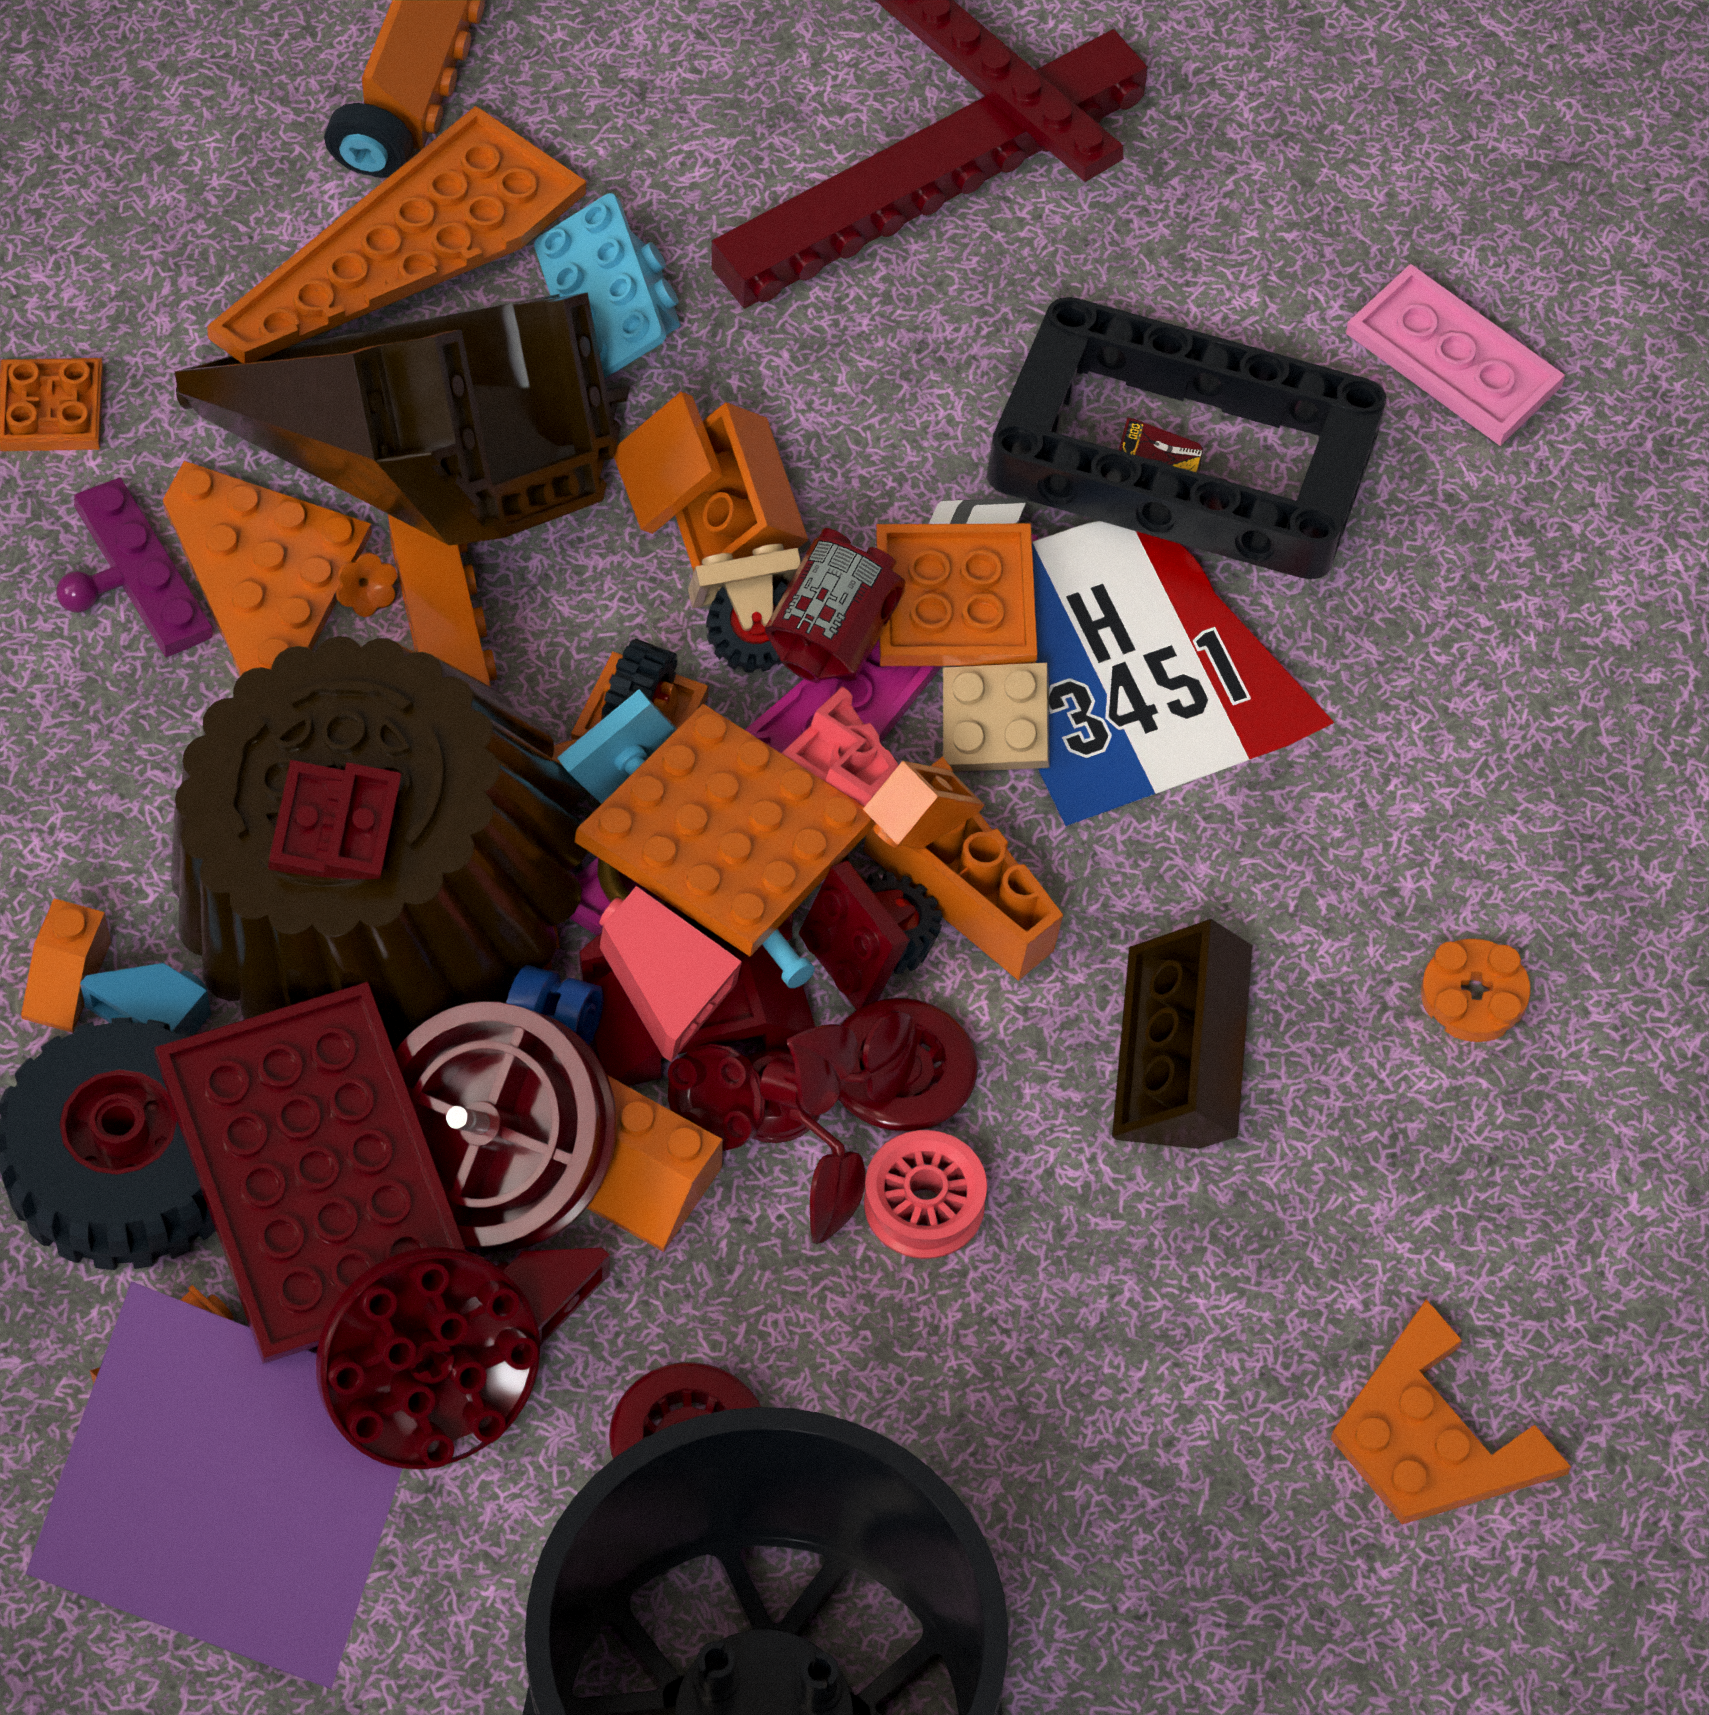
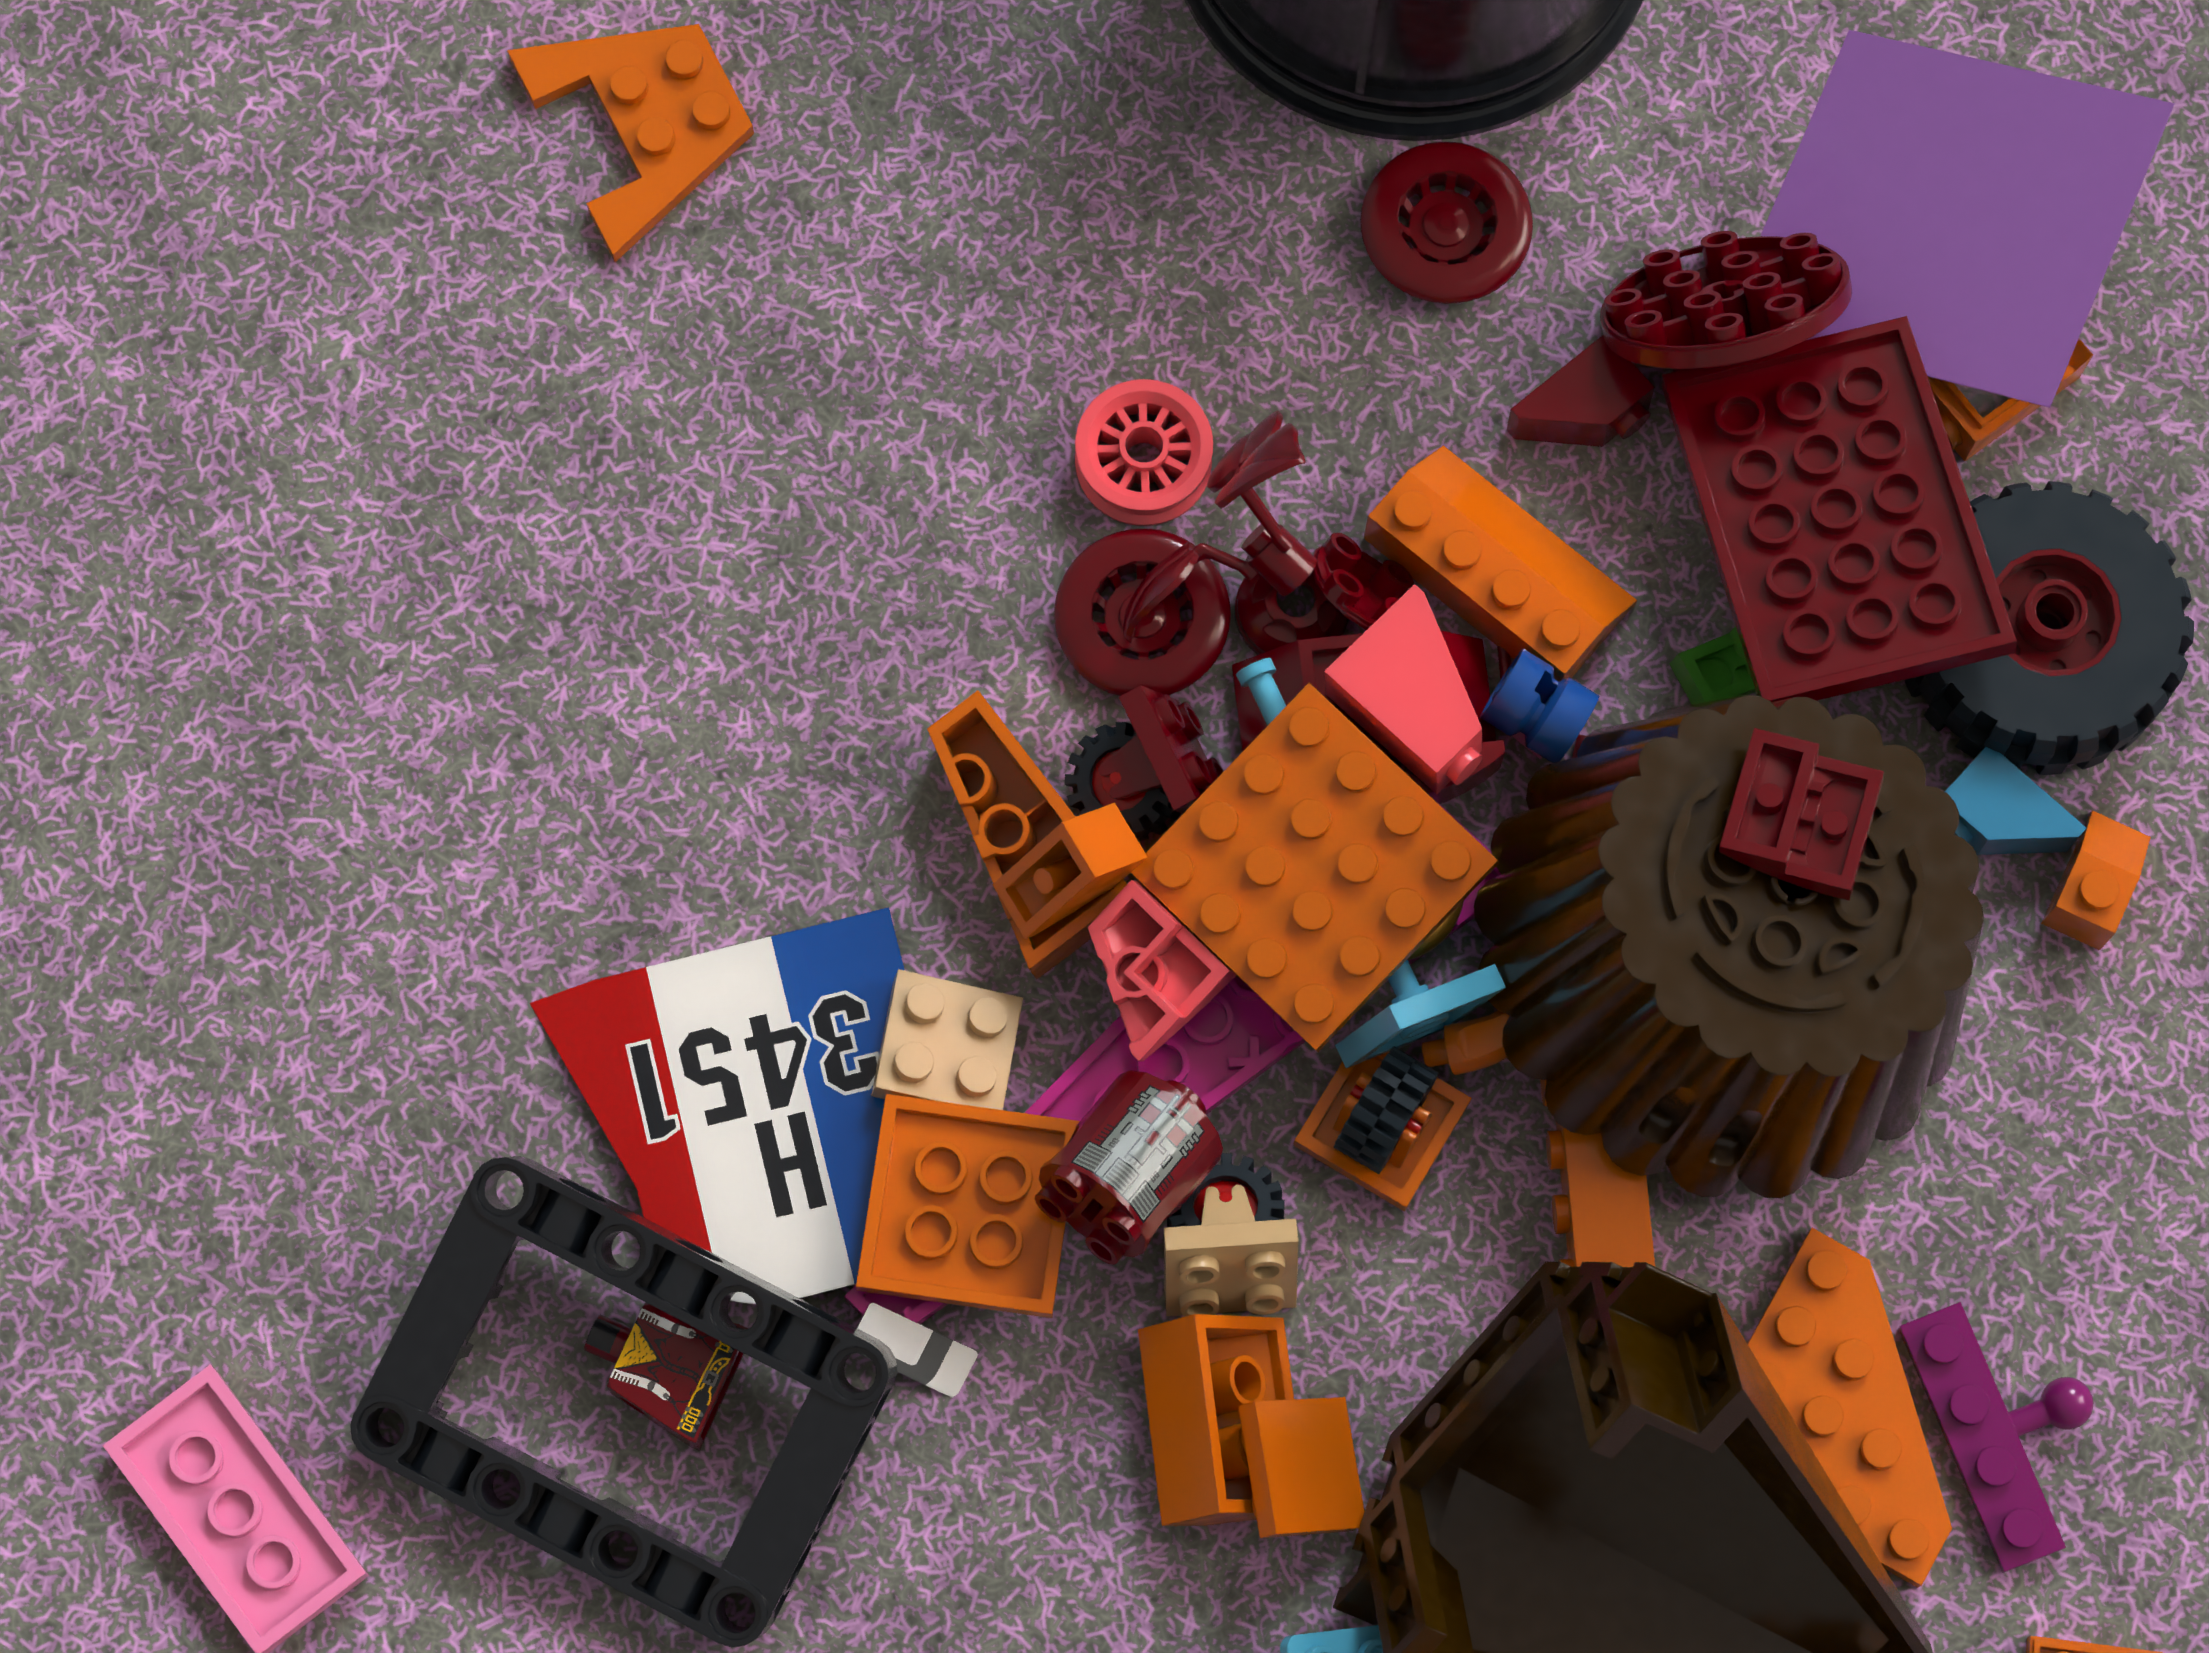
camera: 170 degrees left, 15 degrees up
(510, 1119) = (1613, 556): dark red wheel -> none
(1183, 1038) = (813, 594): dark brown slope -> none
(1482, 961) = (475, 647): orange plate -> none

